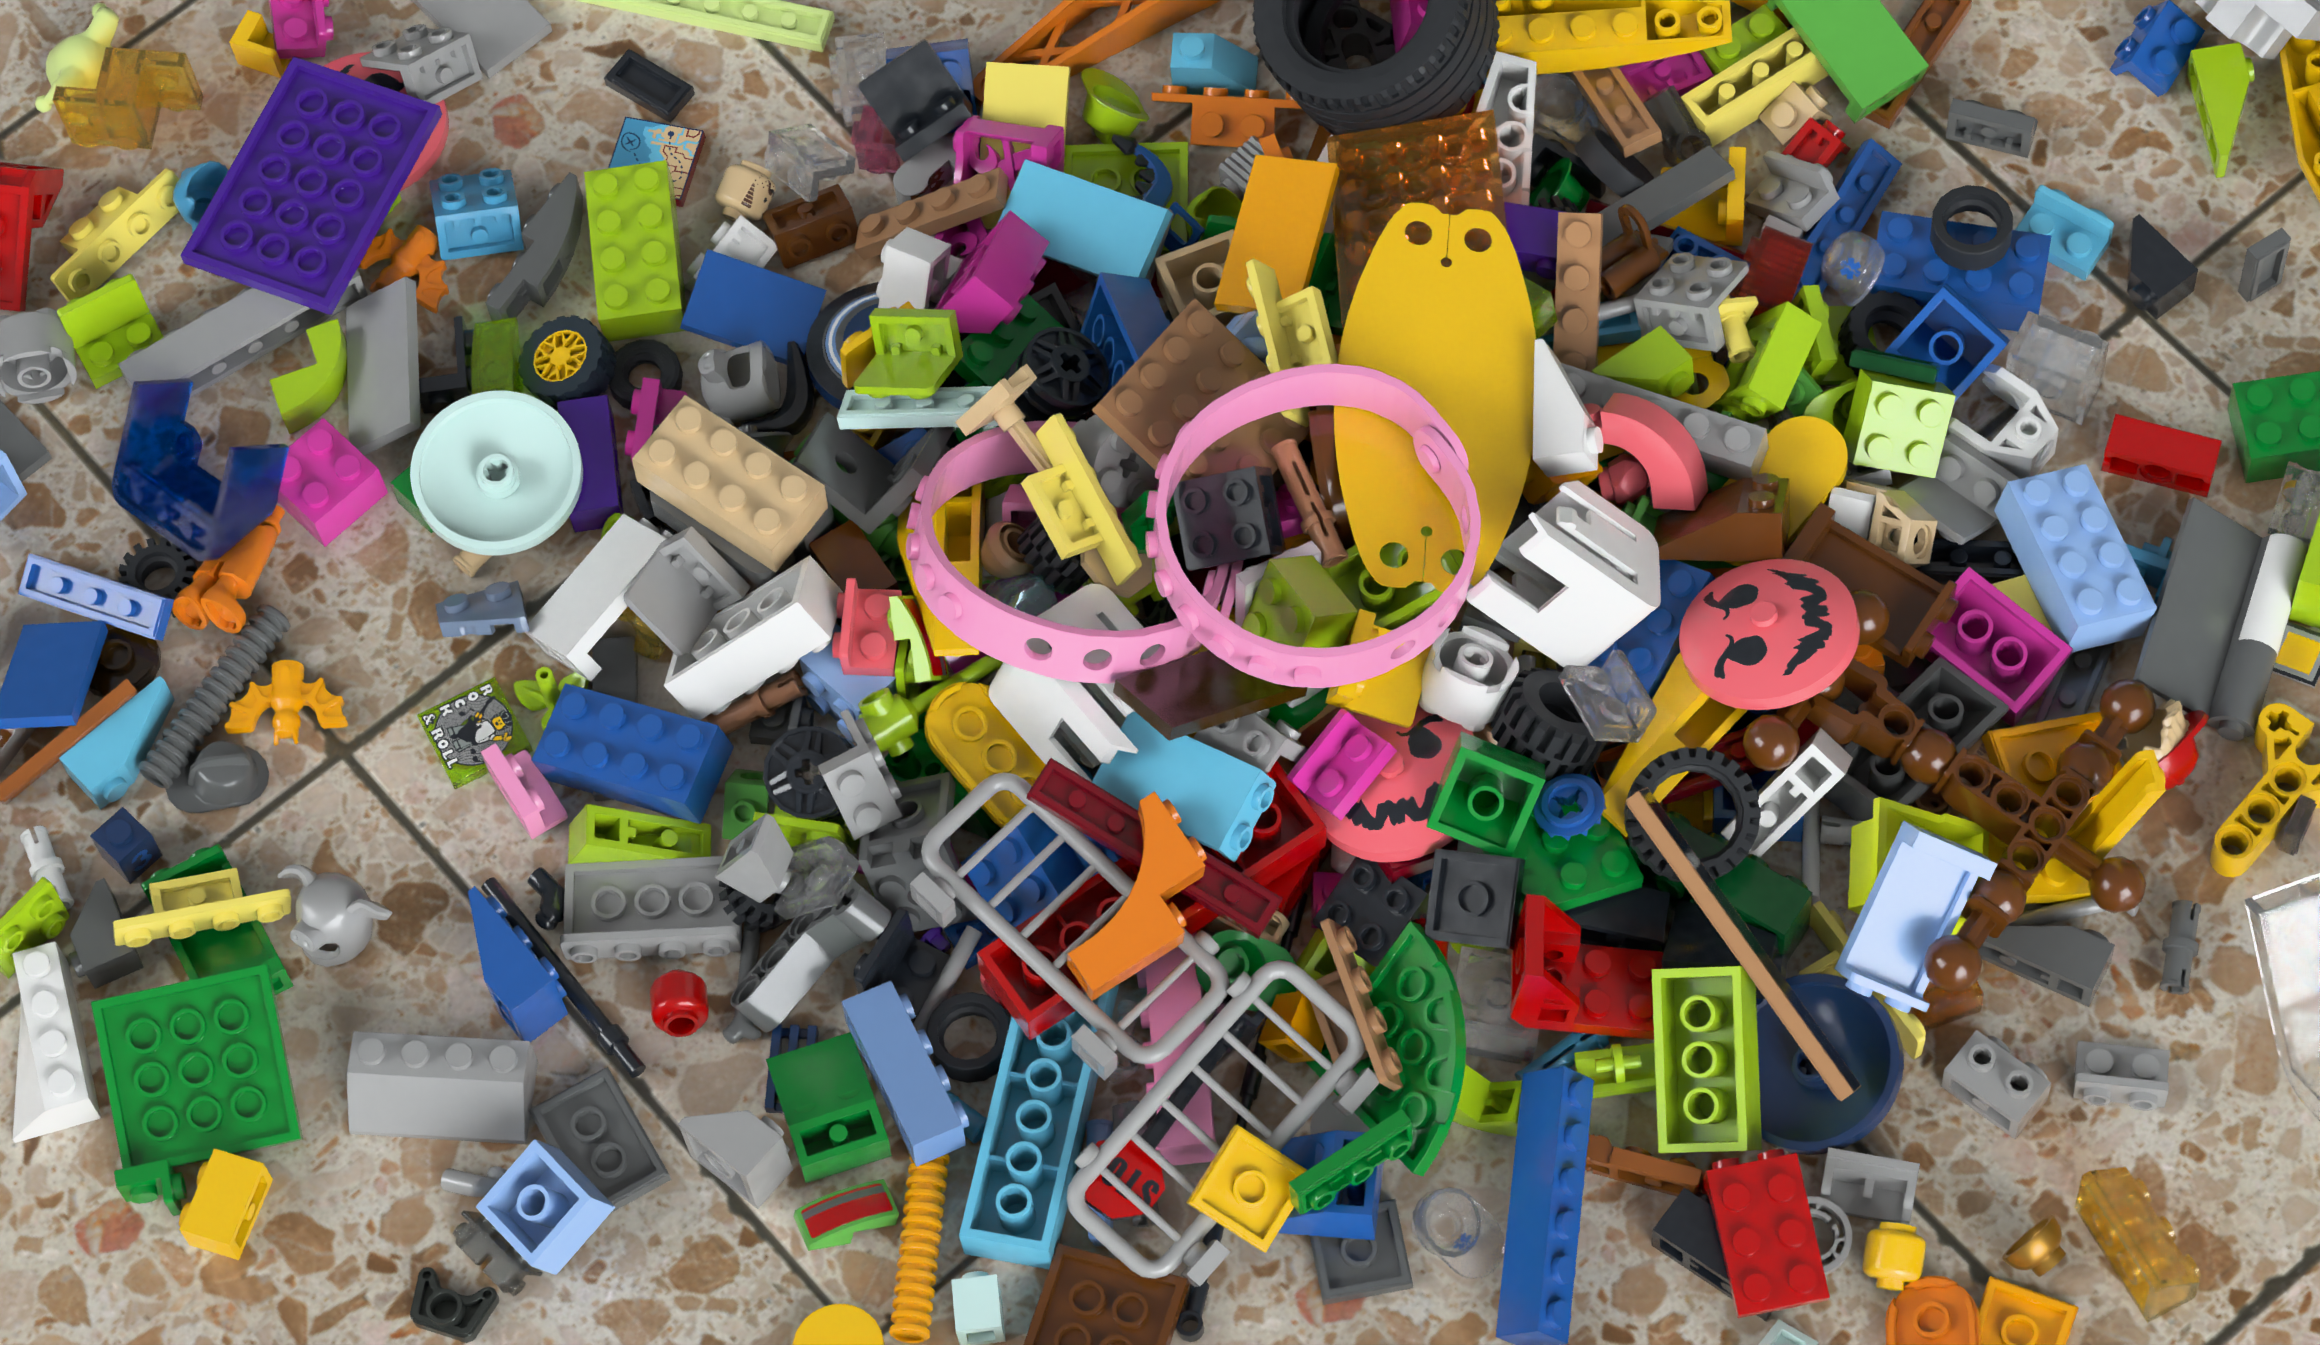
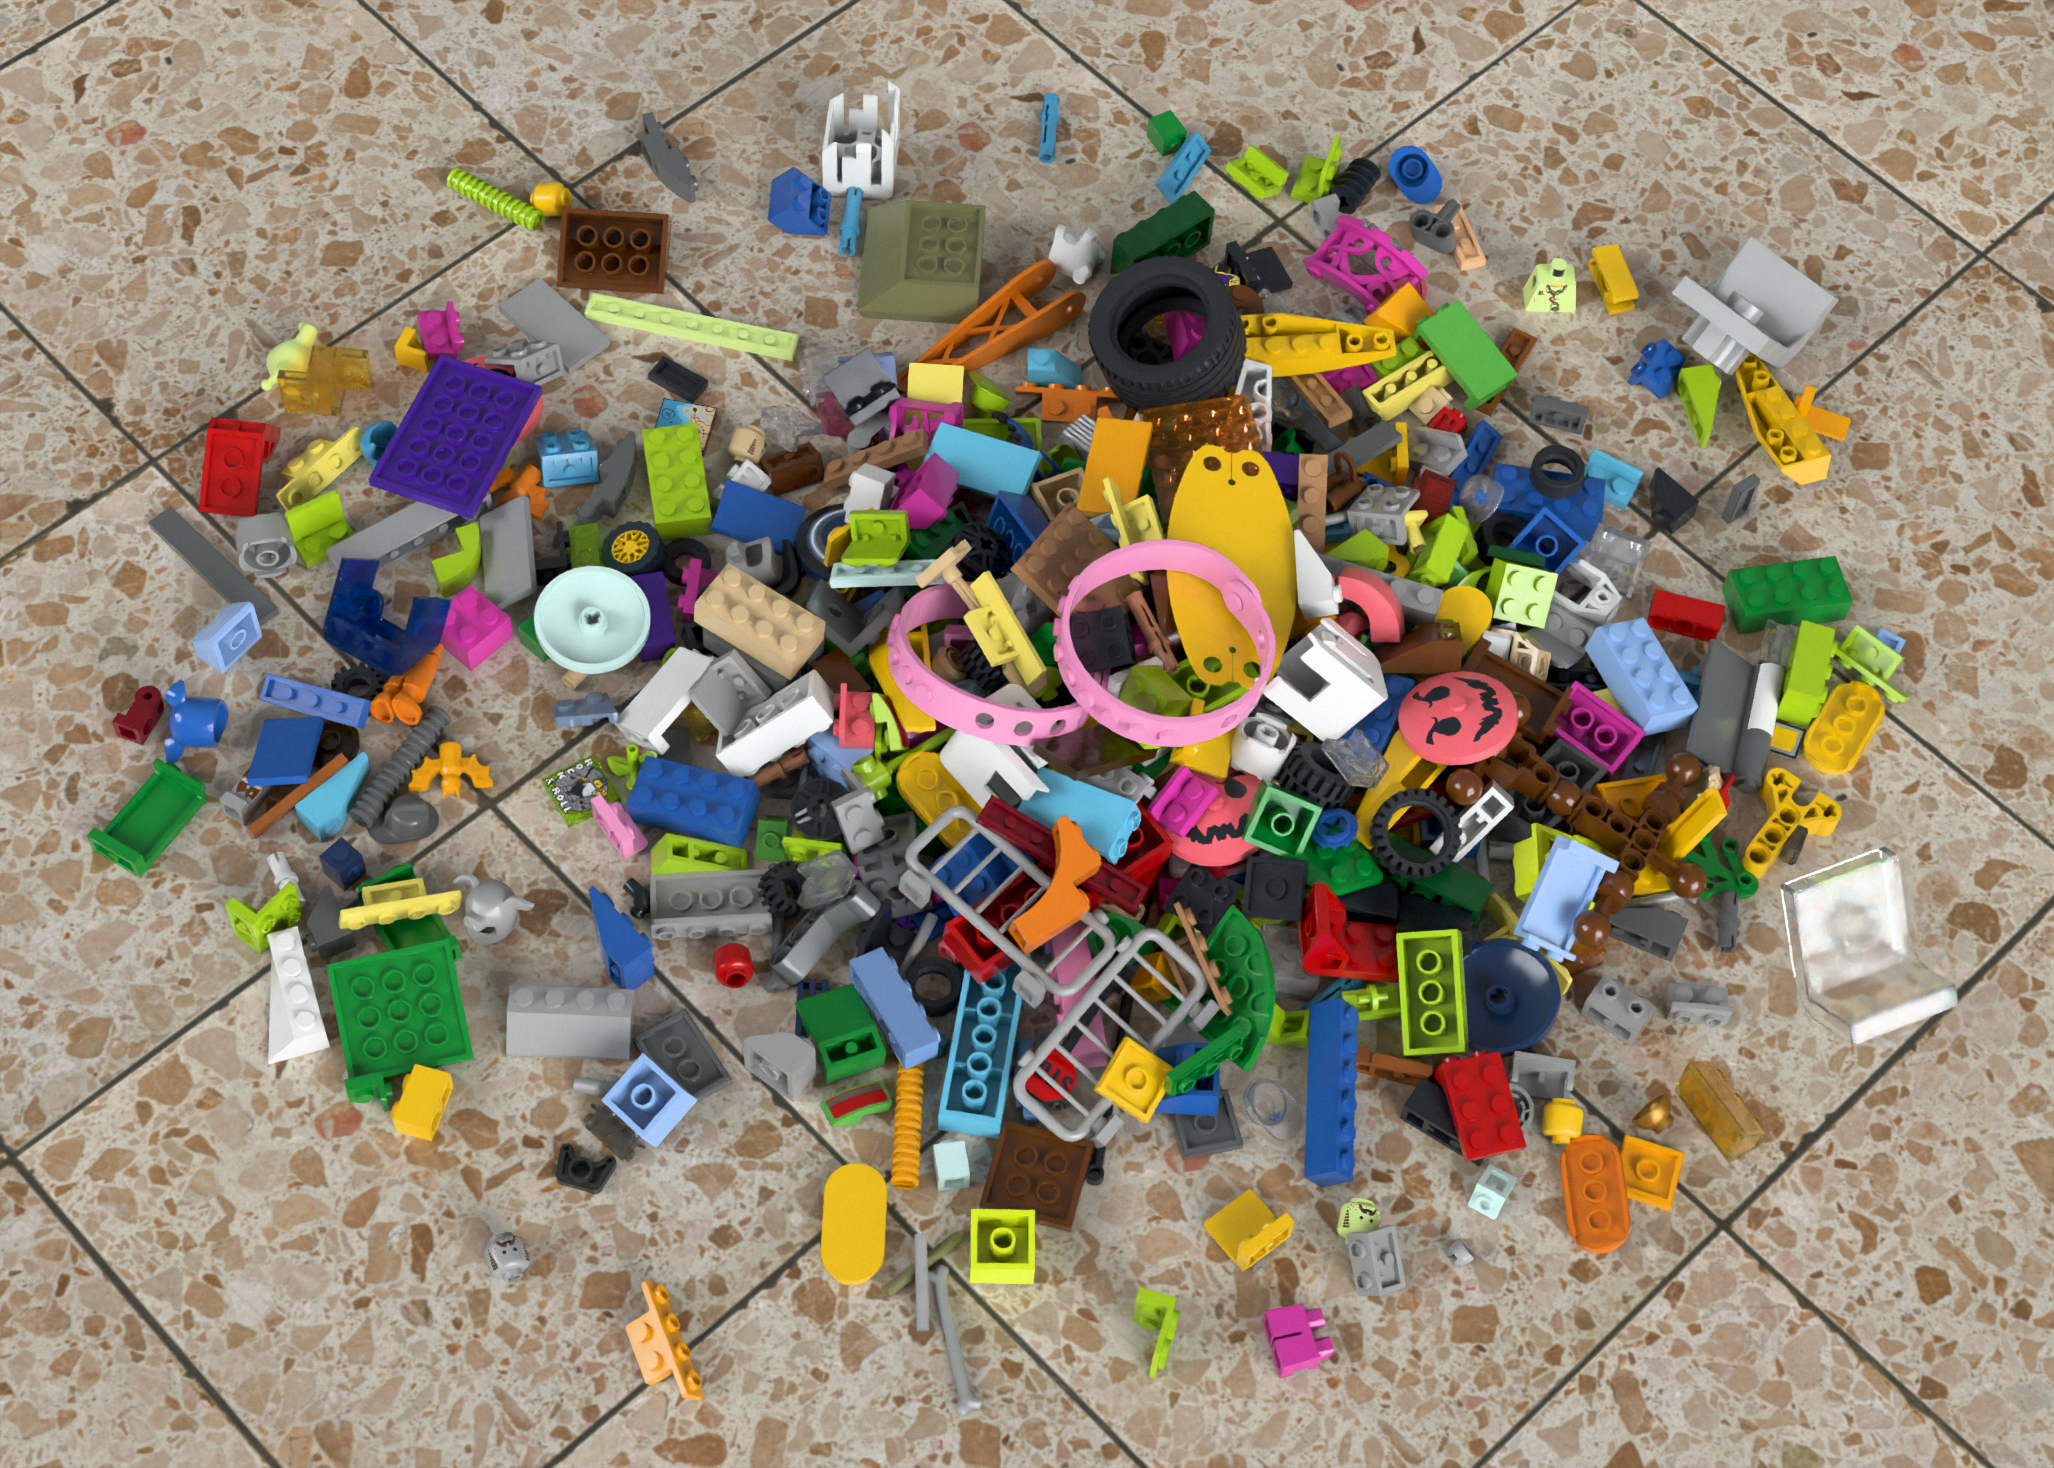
camera: 15 degrees left, 5 degrees down
(610, 1035) = (686, 988): black bar -> none
(757, 860) = (787, 867): light grey slope -> none
(1743, 944) = (1456, 916): medium nougat tile -> none
(2164, 859) = (1712, 866): none -> green plant

